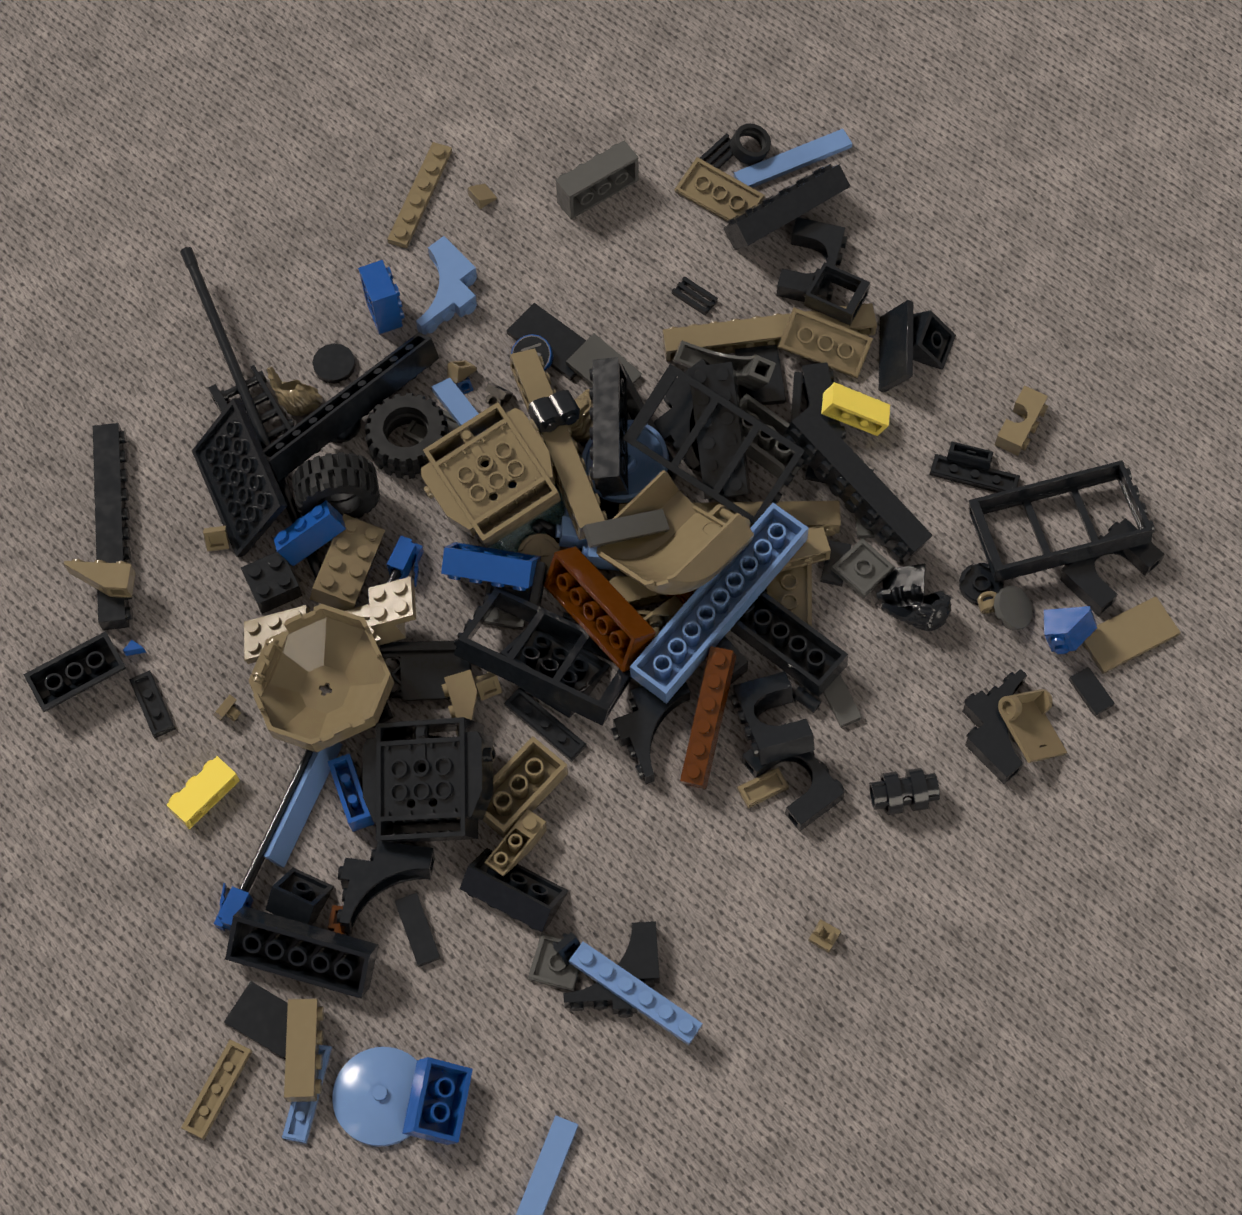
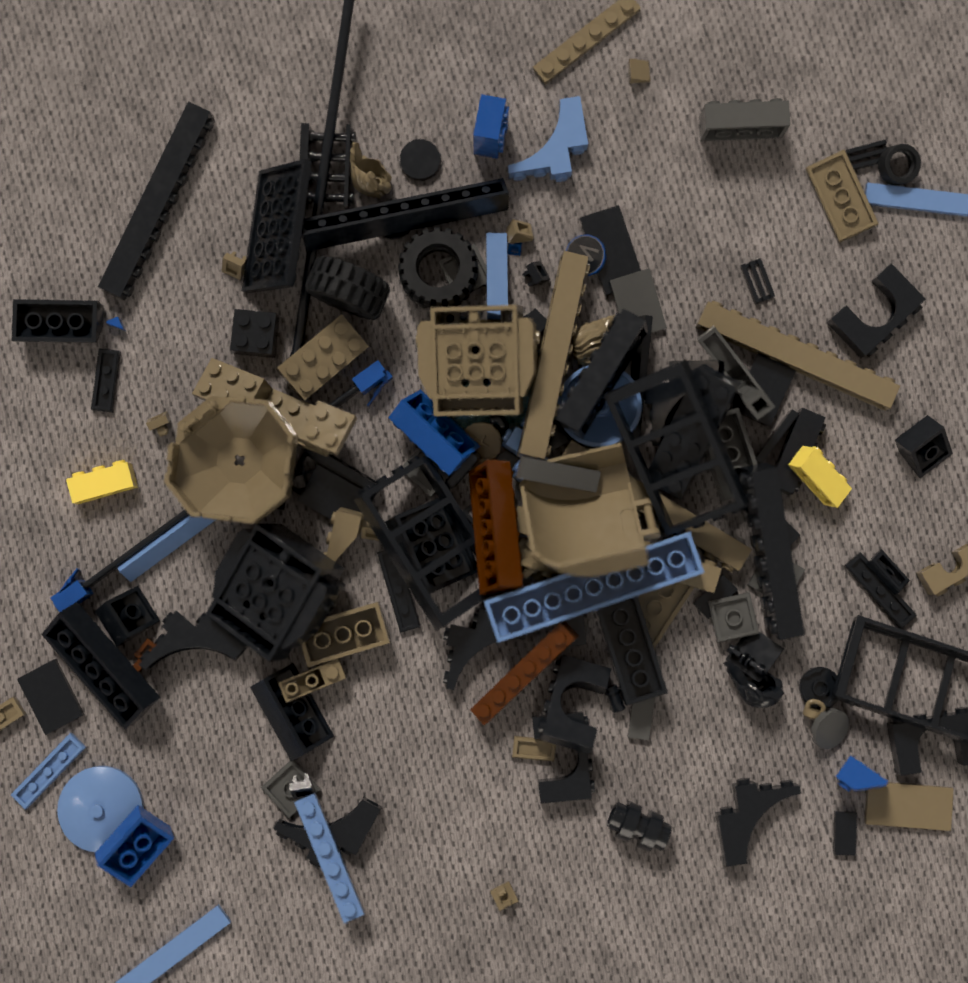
camera: 30 degrees right, 20 degrees up
(110, 578) = (123, 256): dark tan slope -> none
(303, 1050) = (58, 742): dark tan brick -> none
(309, 533) = (304, 315): blue brick -> none
(350, 792) = (213, 550): blue brick -> none
(417, 929) = (201, 696): black tile -> none
(554, 411) = (564, 332): black brick -> none
(786, 205) = (889, 248): black brick -> none
(825, 342) = (836, 397): dark tan tile -> none
(841, 278) = (890, 352): black window -> none
(896, 346) = (893, 438): black tile -> none
(1030, 726) = (775, 836): dark tan door -> none

